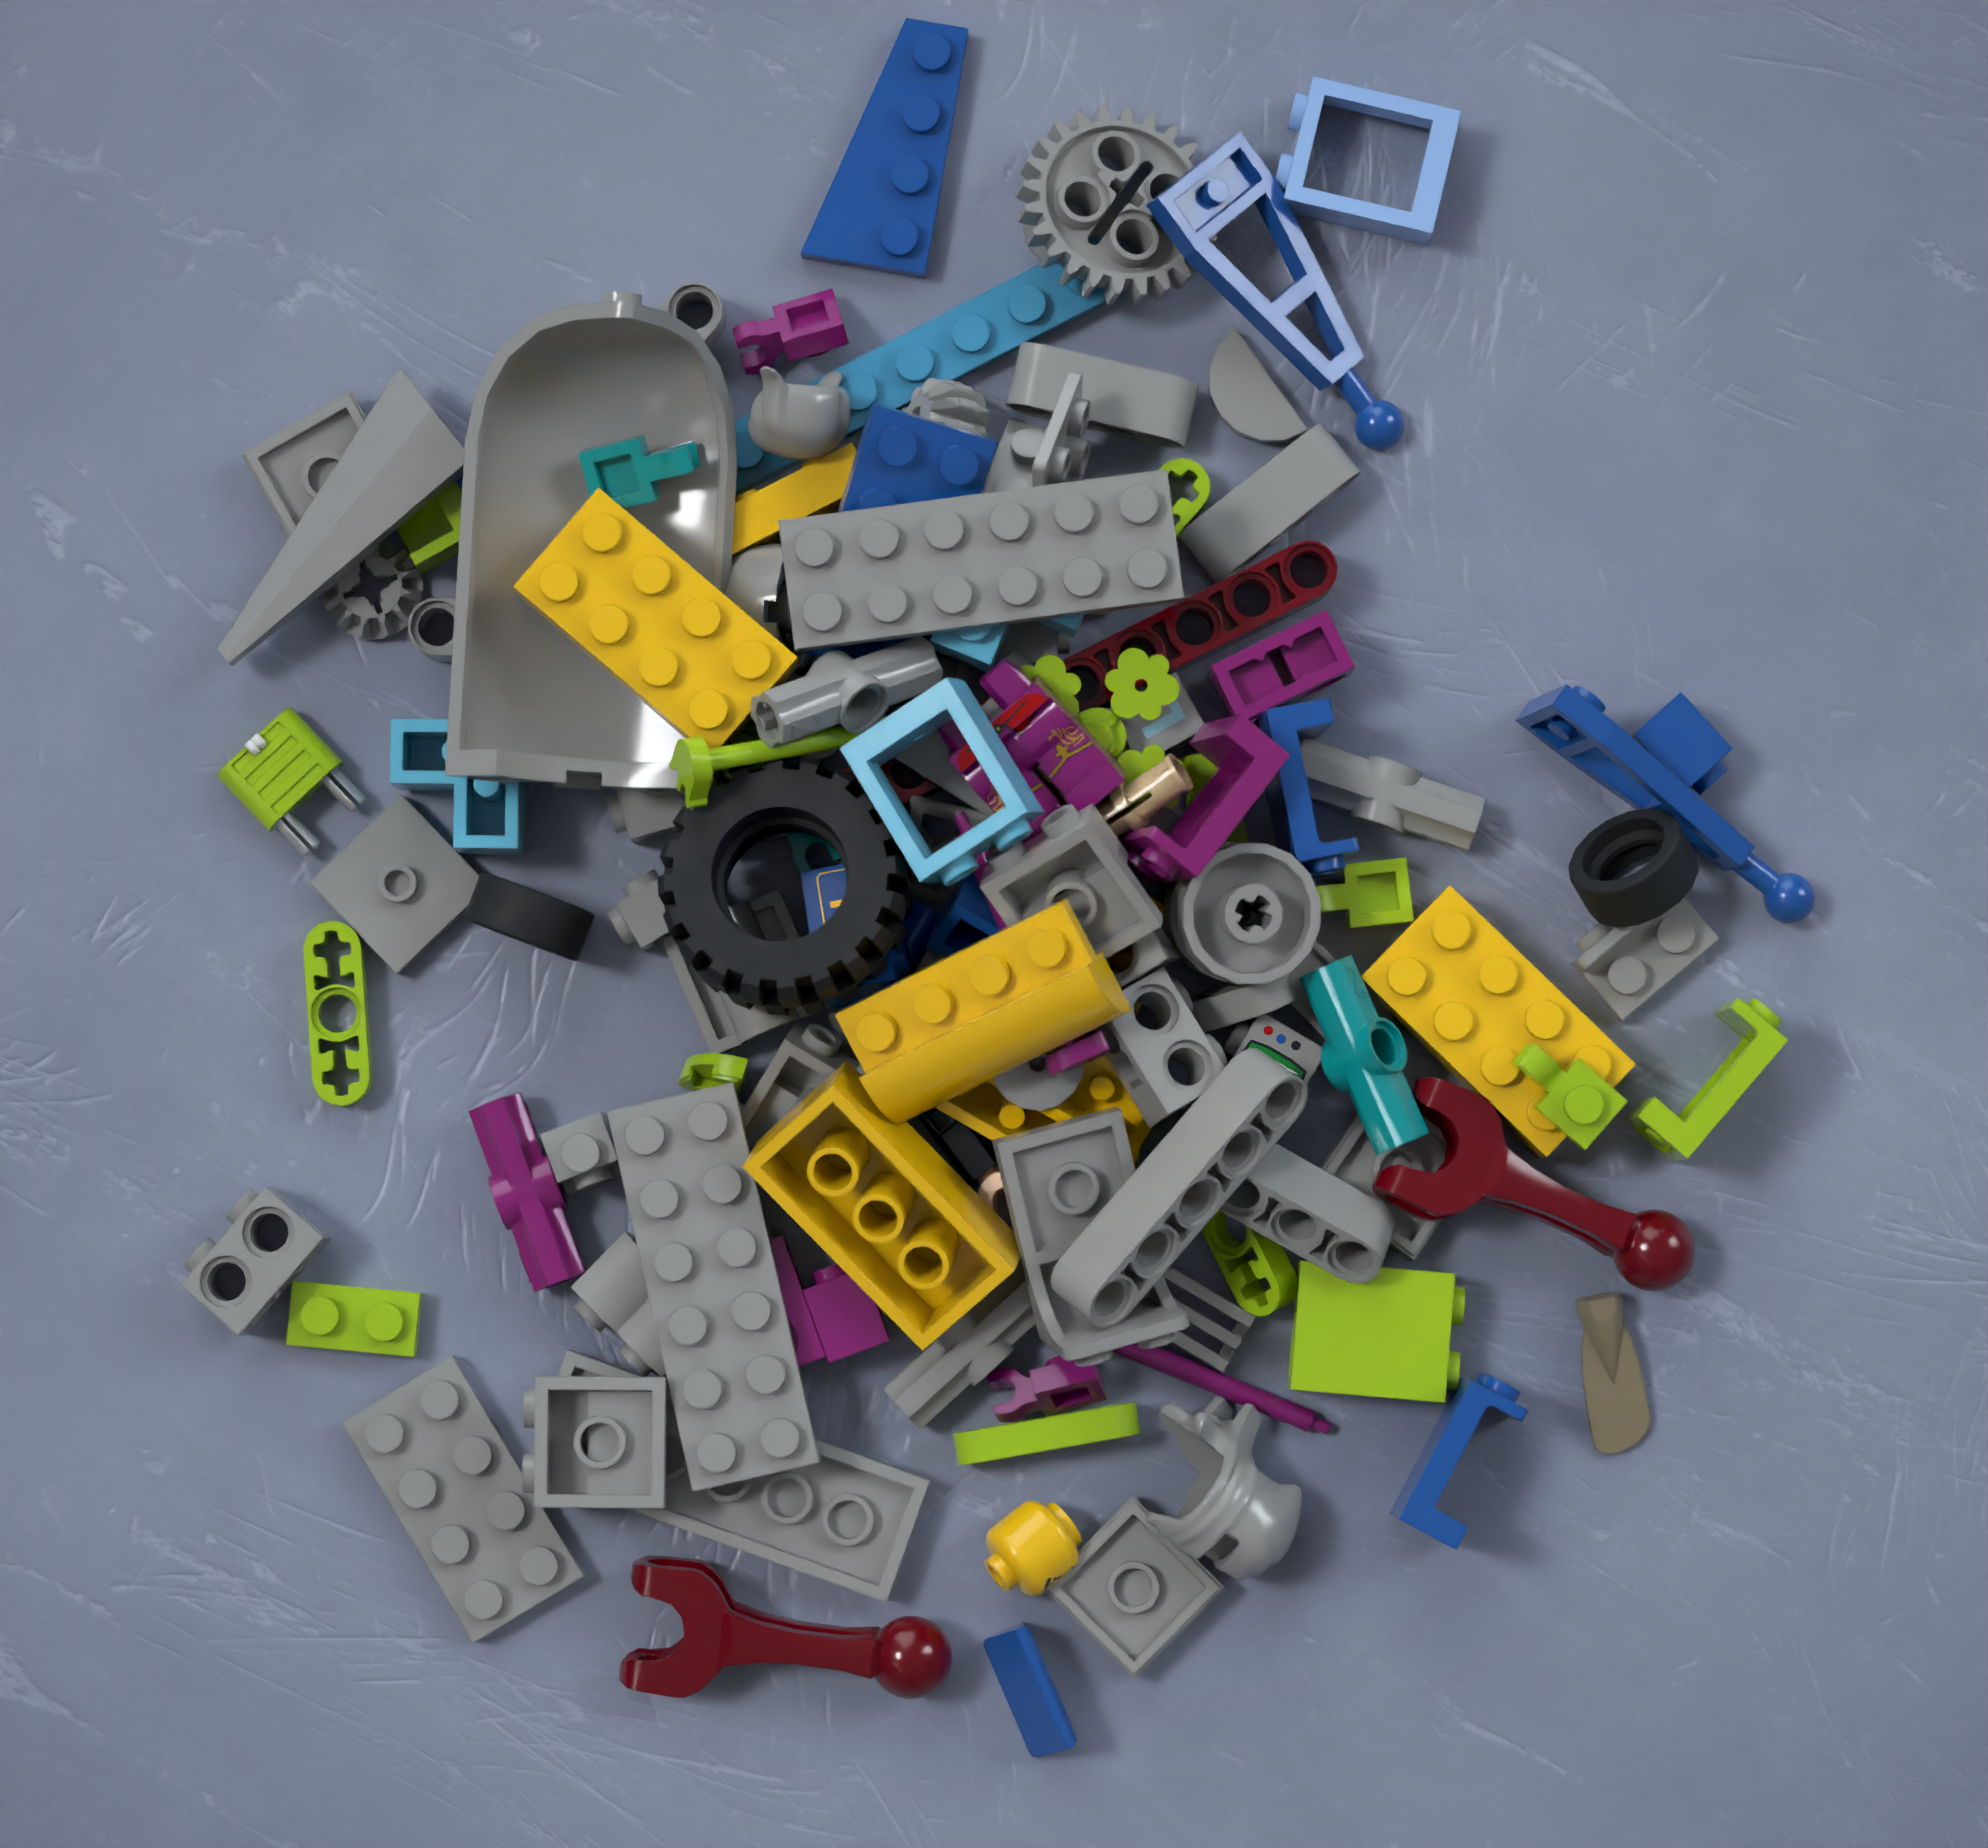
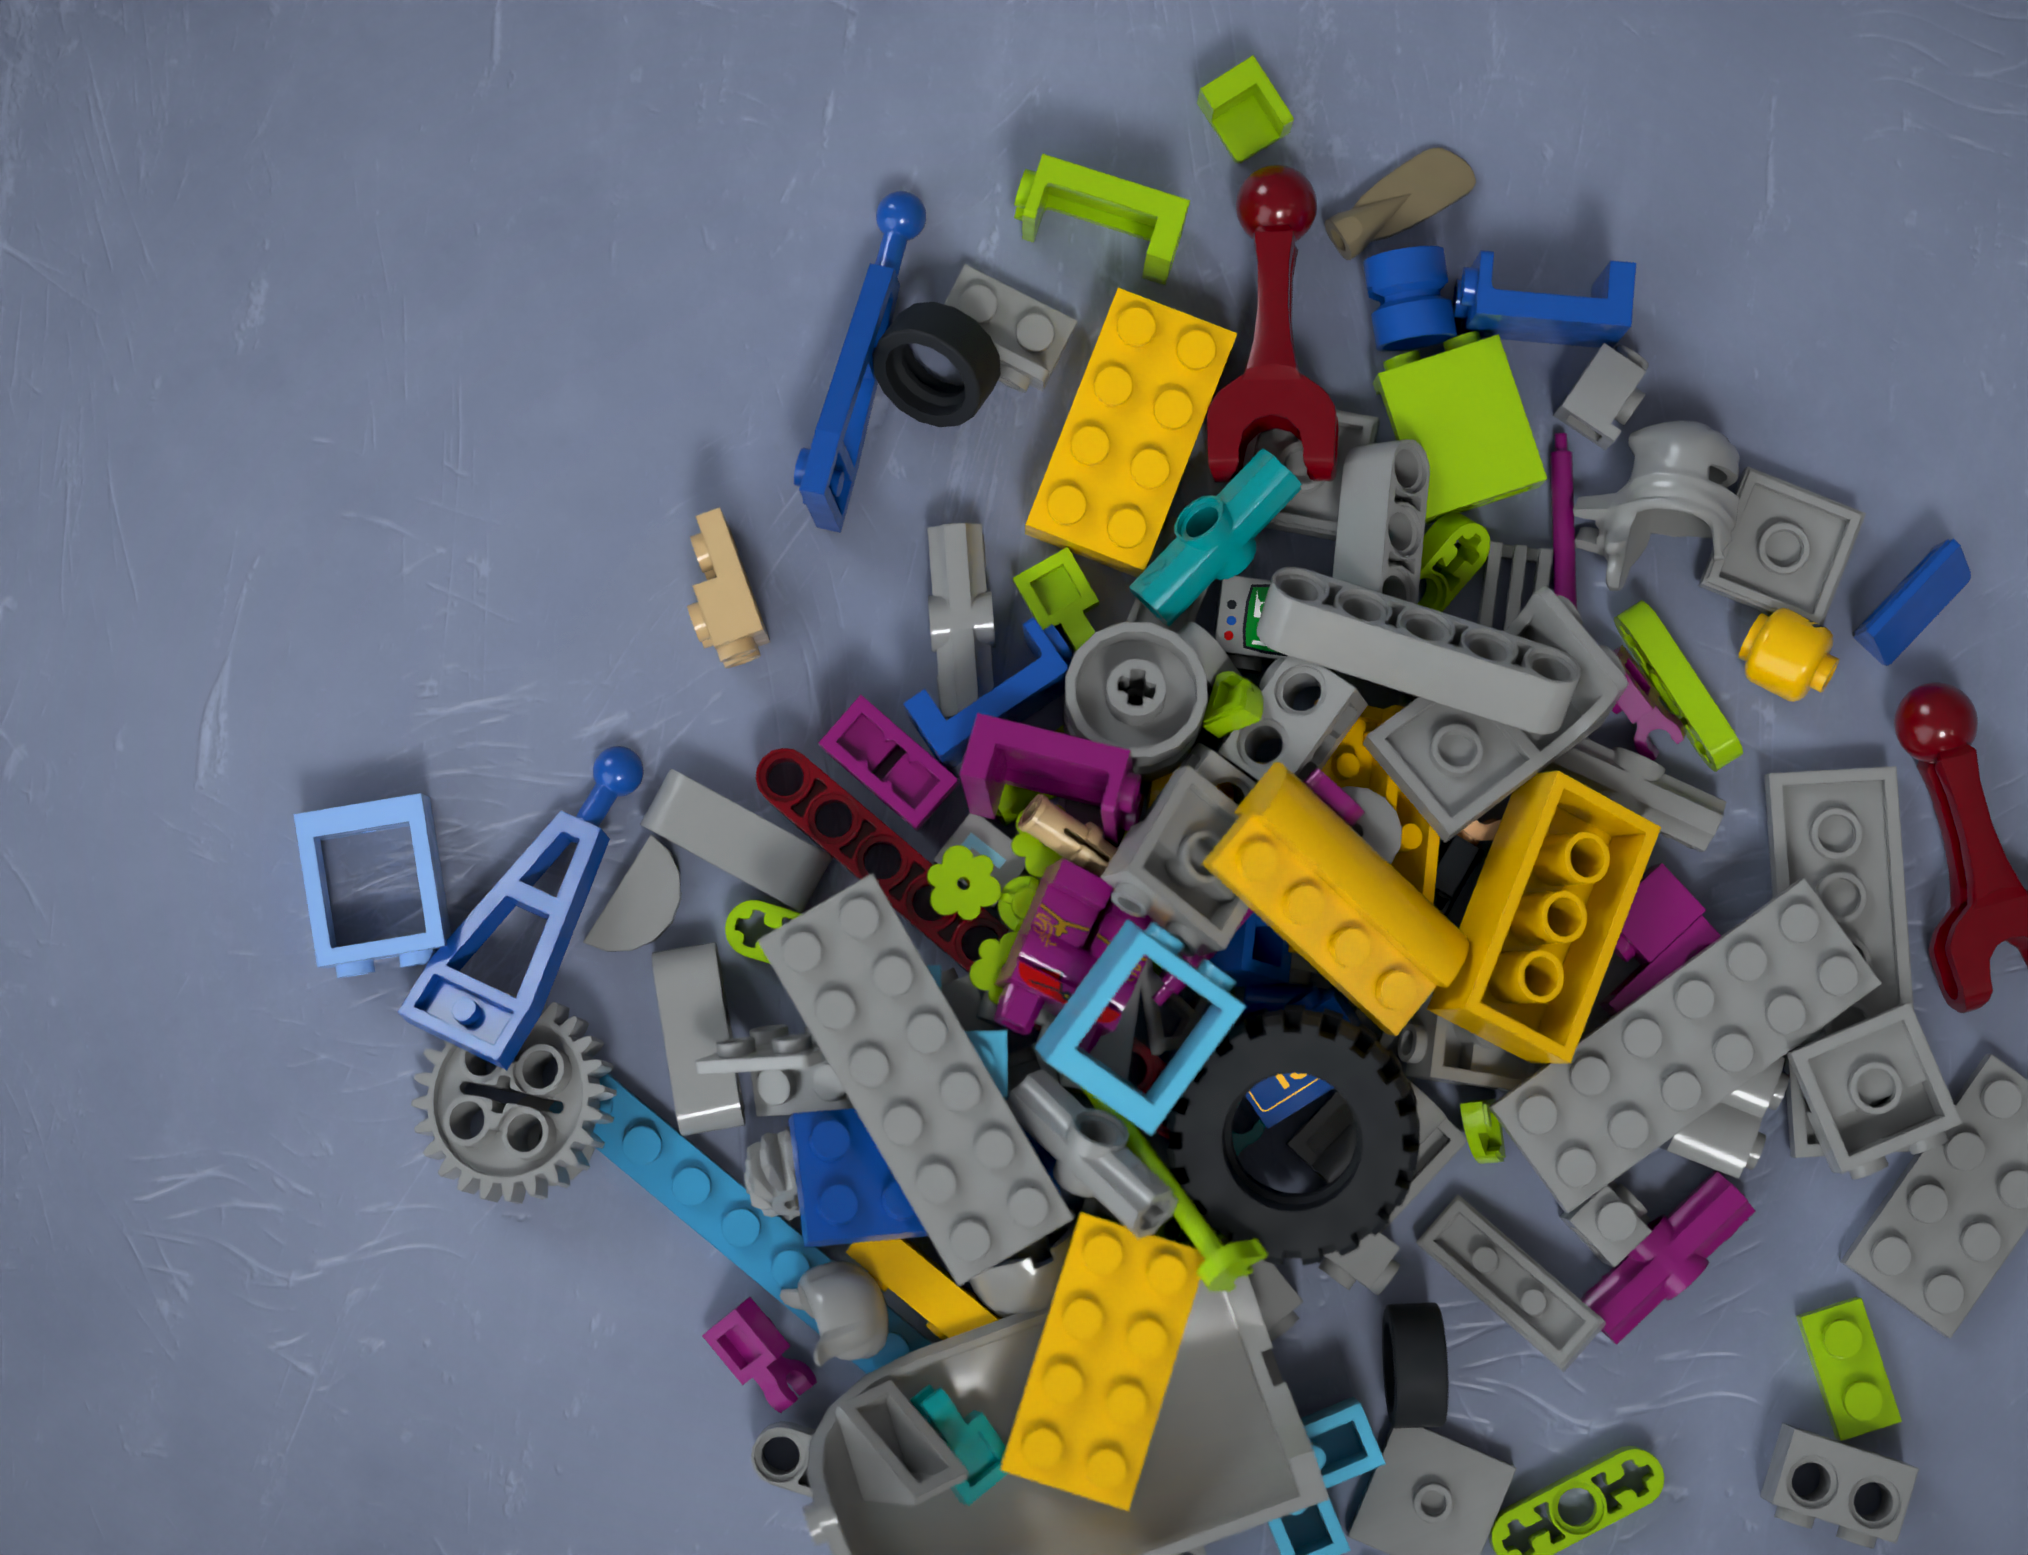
camera: 120 degrees left, 0 degrees up
(565, 1038) = (1511, 1283): none -> light grey tile
(658, 406) = (895, 1448): none -> light grey slope
(893, 171) = (569, 1325): blue wing -> none
(1202, 1000) = (1232, 704): none -> lime tile
(1349, 1483) = (1604, 393): none -> light grey brick
(1485, 583) = (726, 604): none -> tan plate
(1514, 1337) = (1409, 297): none -> blue wheel
(1573, 1098) = (1176, 328): lime plate -> none
(1685, 744) = (801, 369): blue brick -> none
(1756, 1260) = (1245, 110): none -> lime panel

